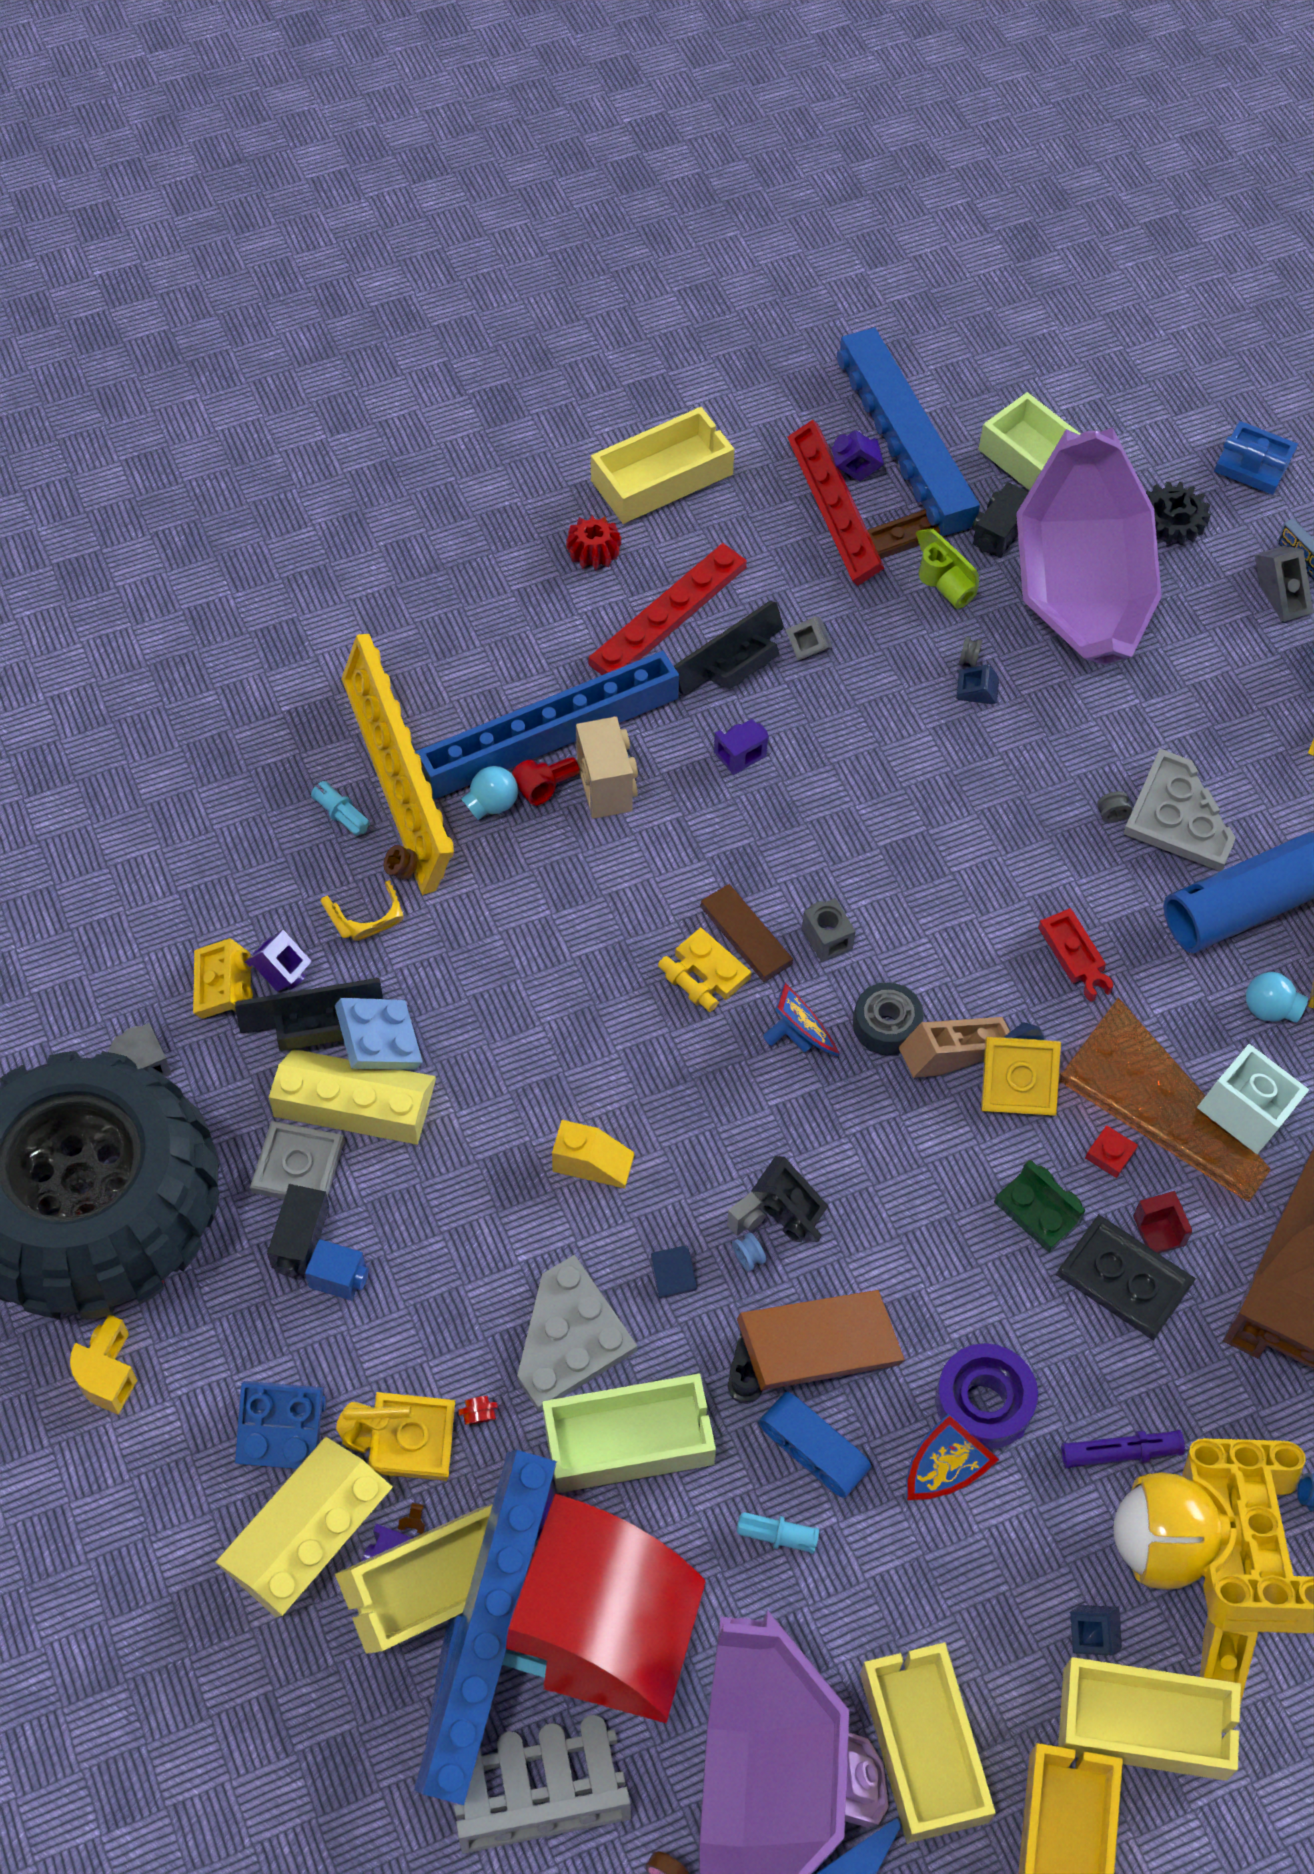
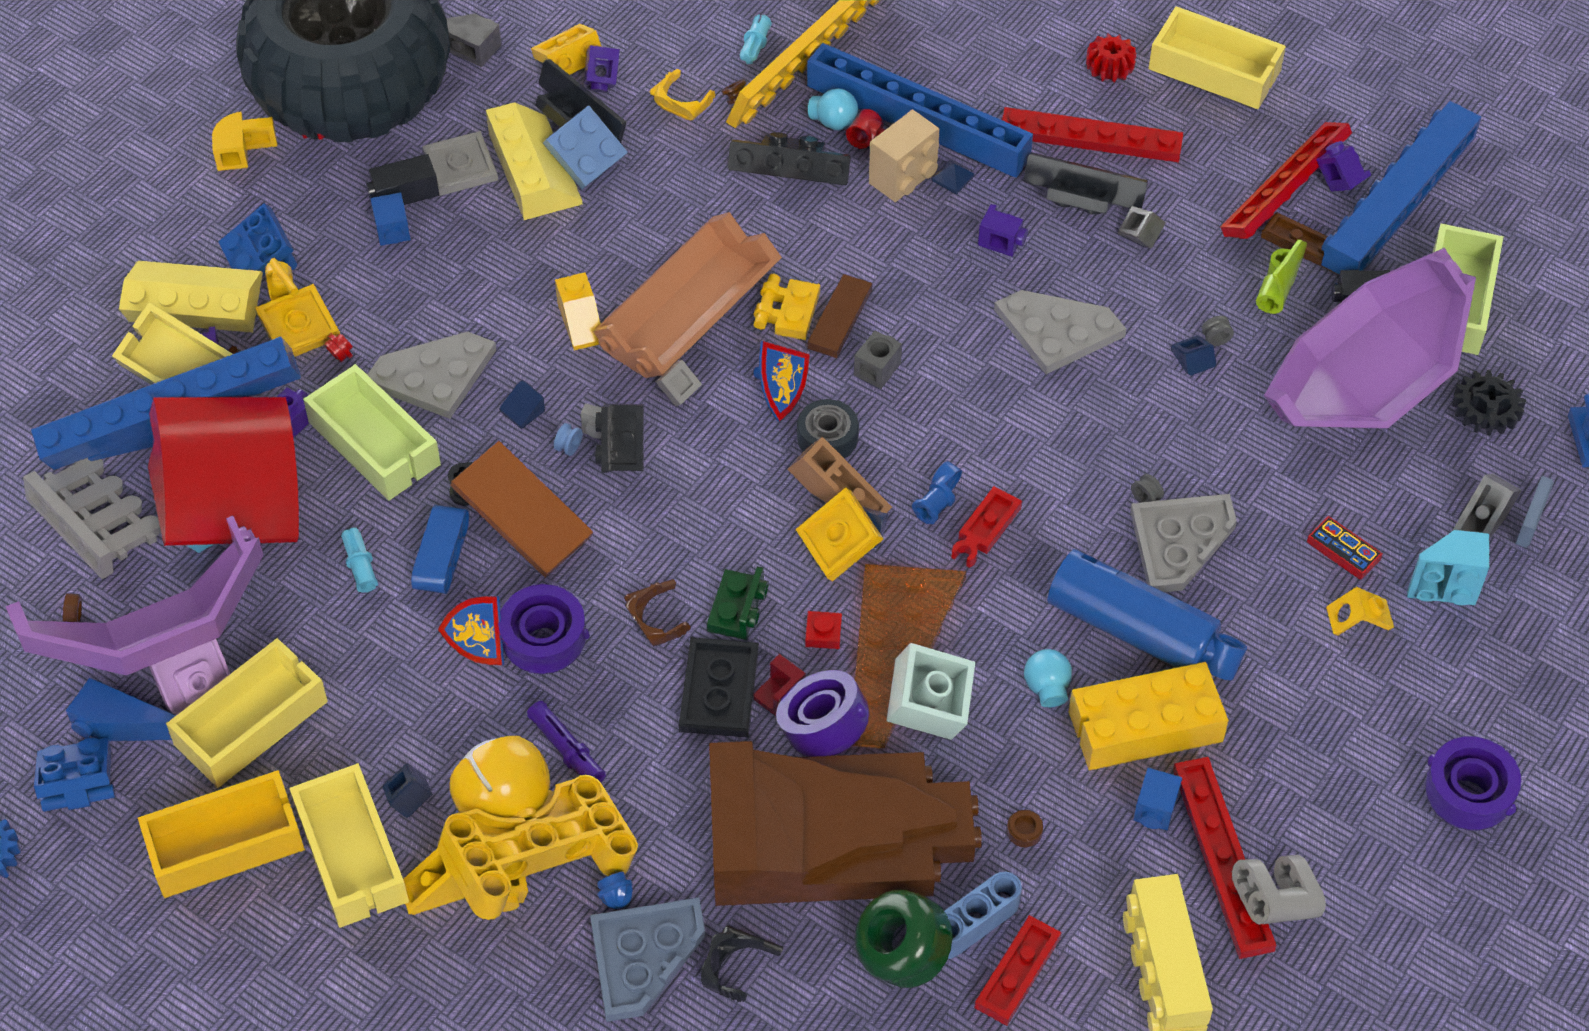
camera: 60 degrees right, 5 degrees down
(521, 863) = (790, 159): none -> black bracket
(642, 746) = (952, 177): none -> dark blue slope
(642, 1048) = (686, 296): none -> nougat panel
(743, 1114) = (678, 383): none -> light grey plate
(878, 769) = (1058, 328): none -> light grey plate
(996, 1301) = (636, 603): none -> reddish brown helmet
(1019, 968) = (939, 493): none -> blue connector
(1207, 1183) = (823, 714): none -> dark purple piece
(1257, 703) = (1344, 548): none -> tile

